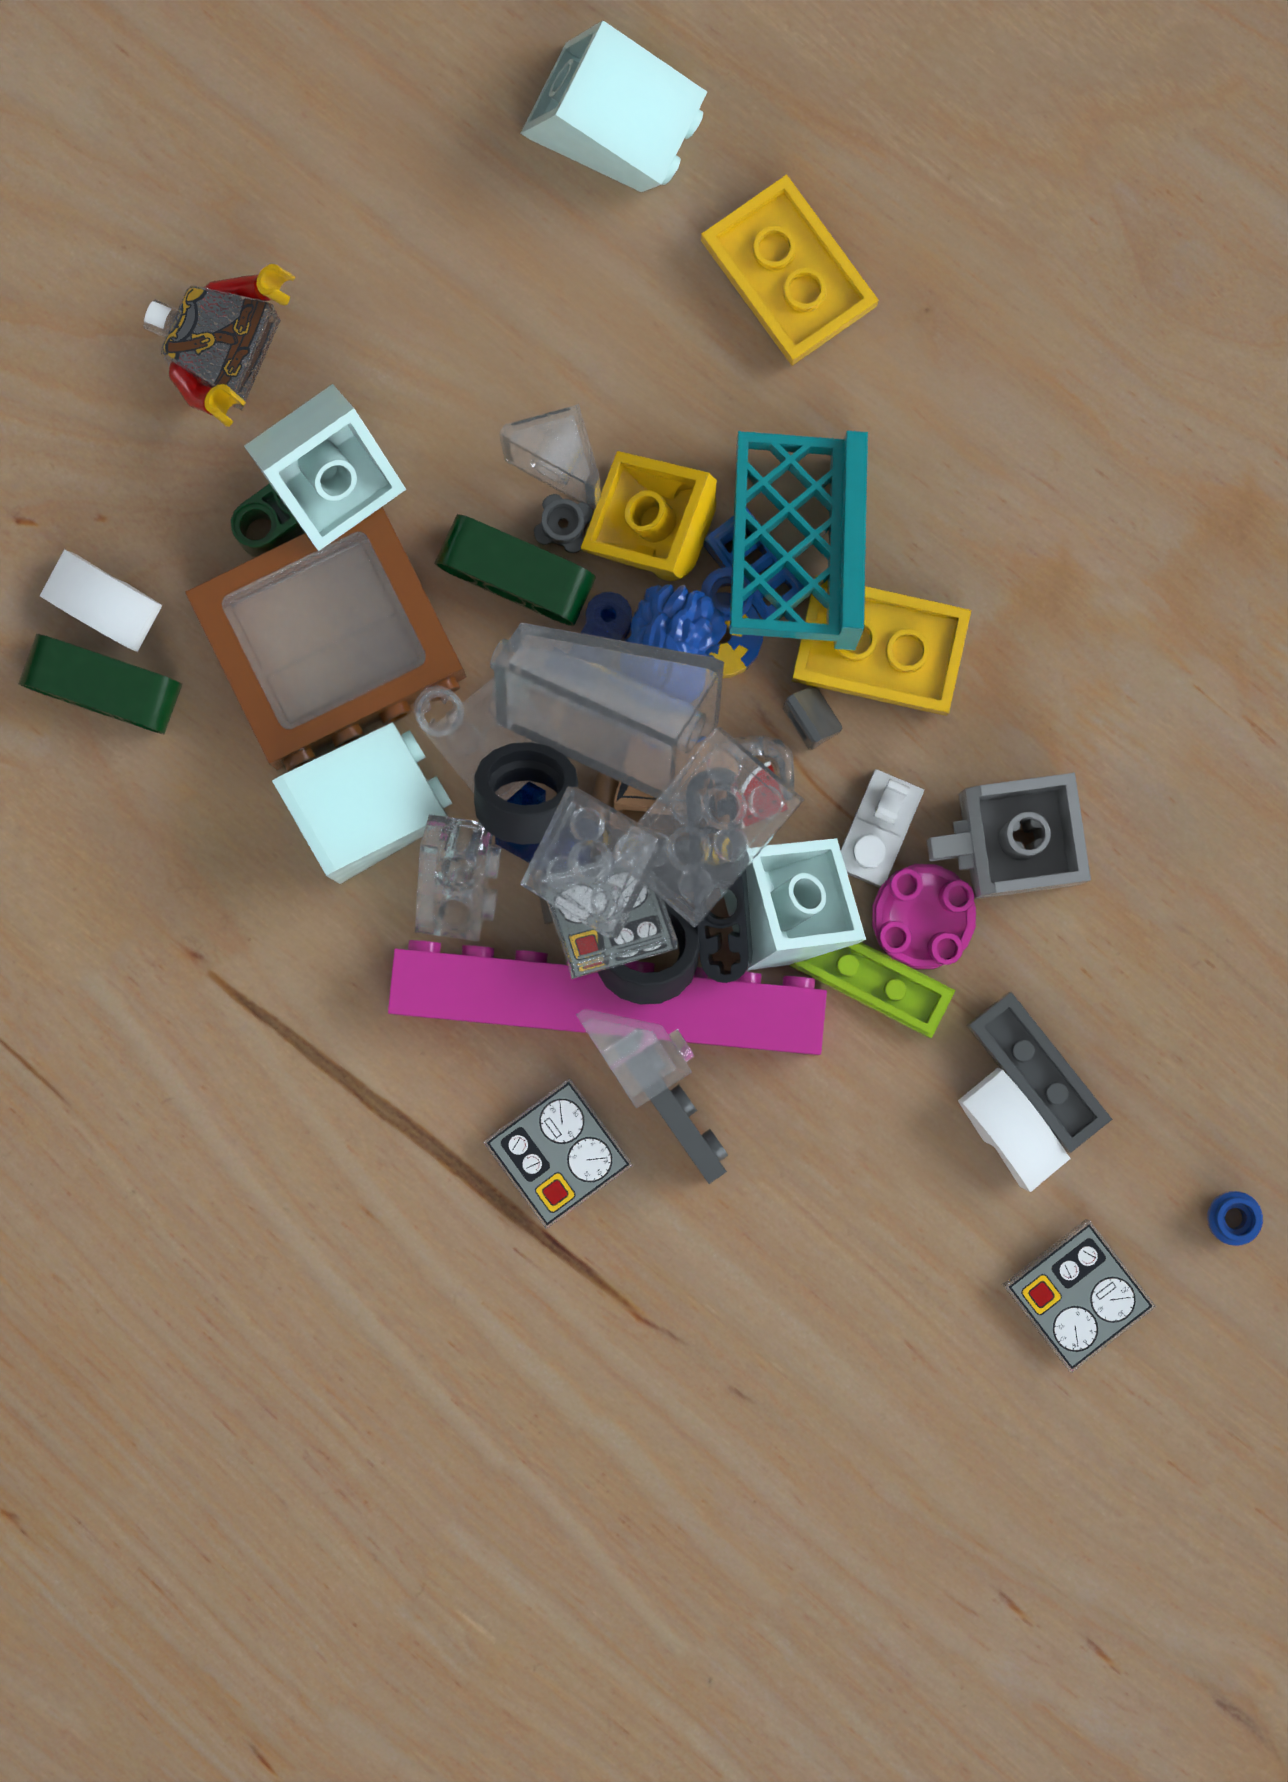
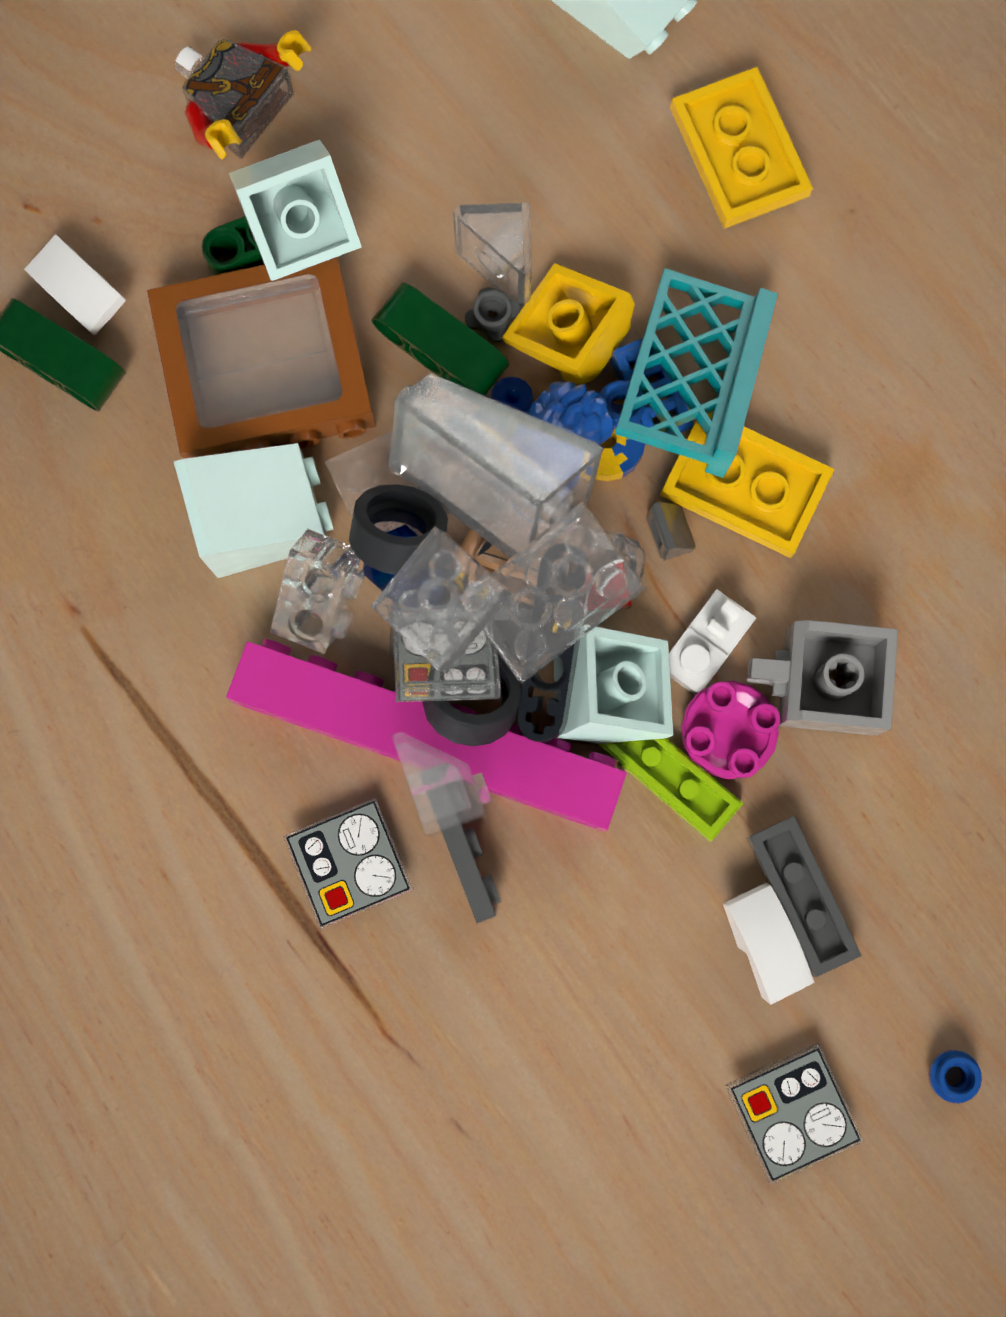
camera: 15 degrees right, 5 degrees down
(454, 716) = (352, 452): clear bush -> none

